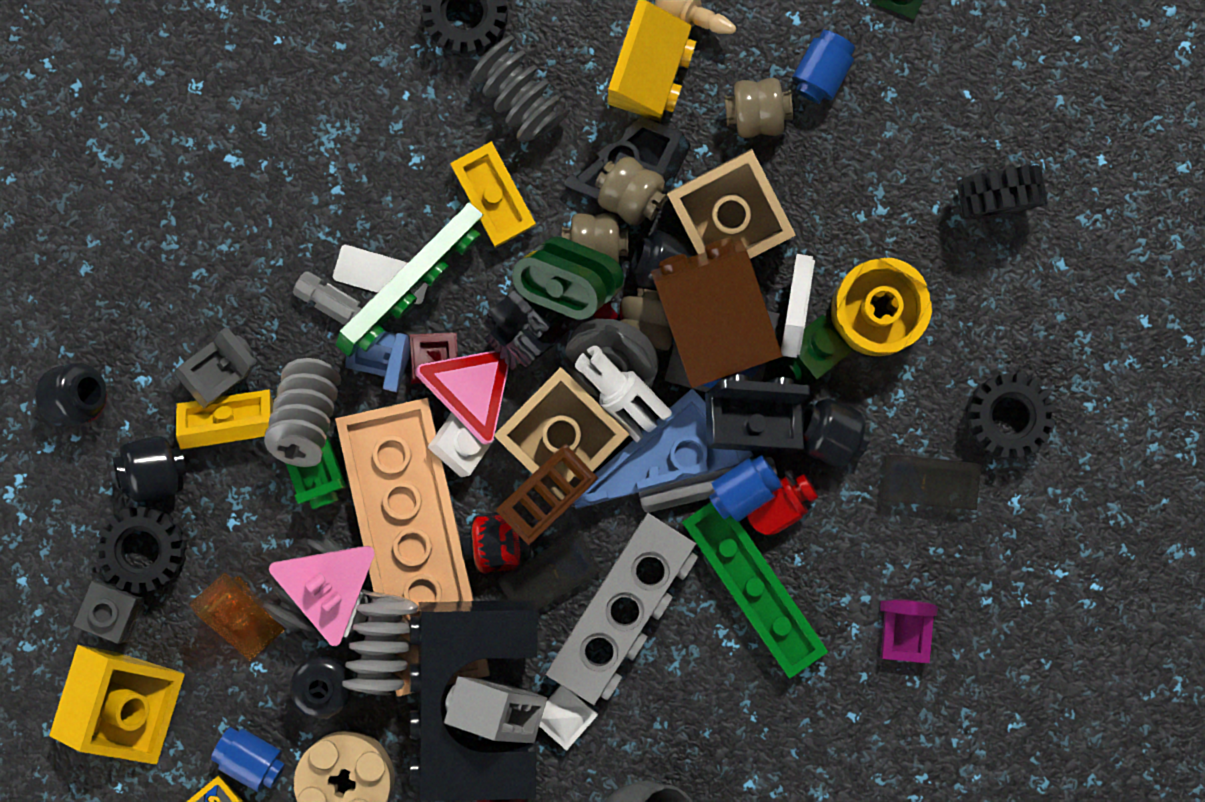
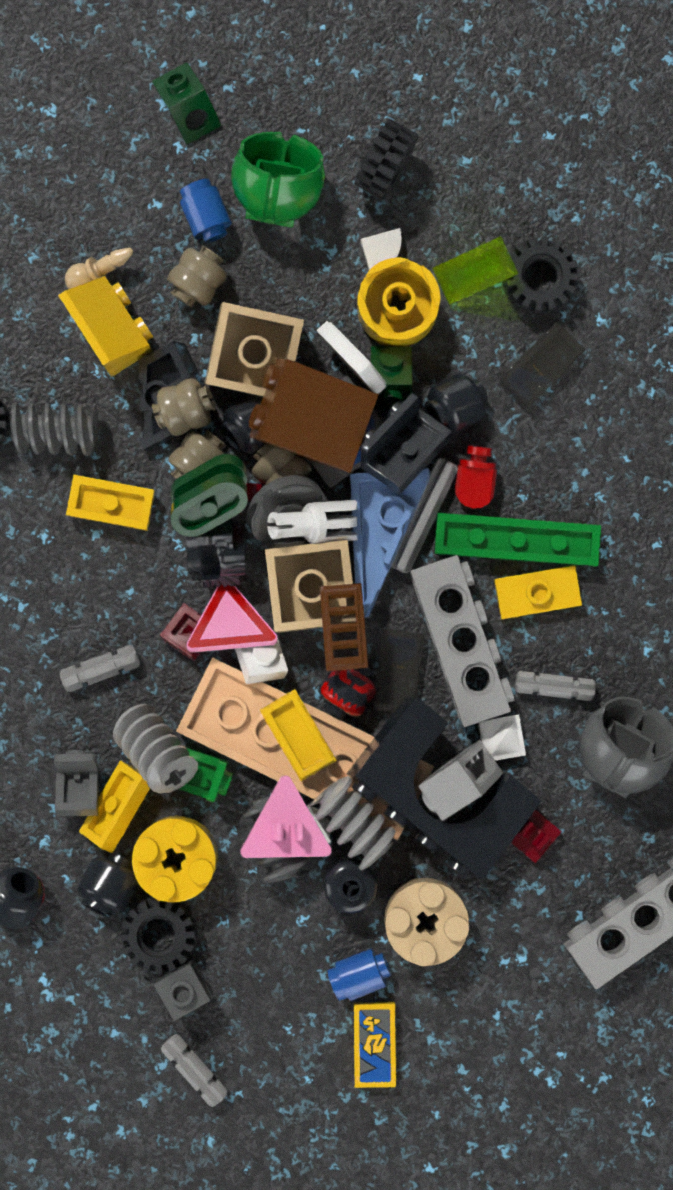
camera: 50 degrees left, 0 degrees up
(45, 679) = (194, 1070): none -> light grey axle
(116, 705) = (250, 1036): yellow slope -> none
(194, 519) = (164, 880): none -> yellow brick
(237, 615) = (256, 904): clear orange slope -> none
(369, 270) = (103, 622): white sticker -> none
(386, 358) = (155, 667): medium blue tile -> none
(397, 295) = (127, 621): plate -> none
(419, 530) = (298, 735): none -> yellow tile
(650, 727) = (555, 686): none -> light grey axle
(722, 643) = (537, 592): none -> yellow plate
(745, 488) = (446, 492): blue brick -> none
(905, 108) = (277, 177): none -> green piece
(907, 630) = (628, 461): magenta tile -> none
(920, 252) = (381, 247): none -> white tile
(967, 352) = (475, 270): none -> clear neon green slope

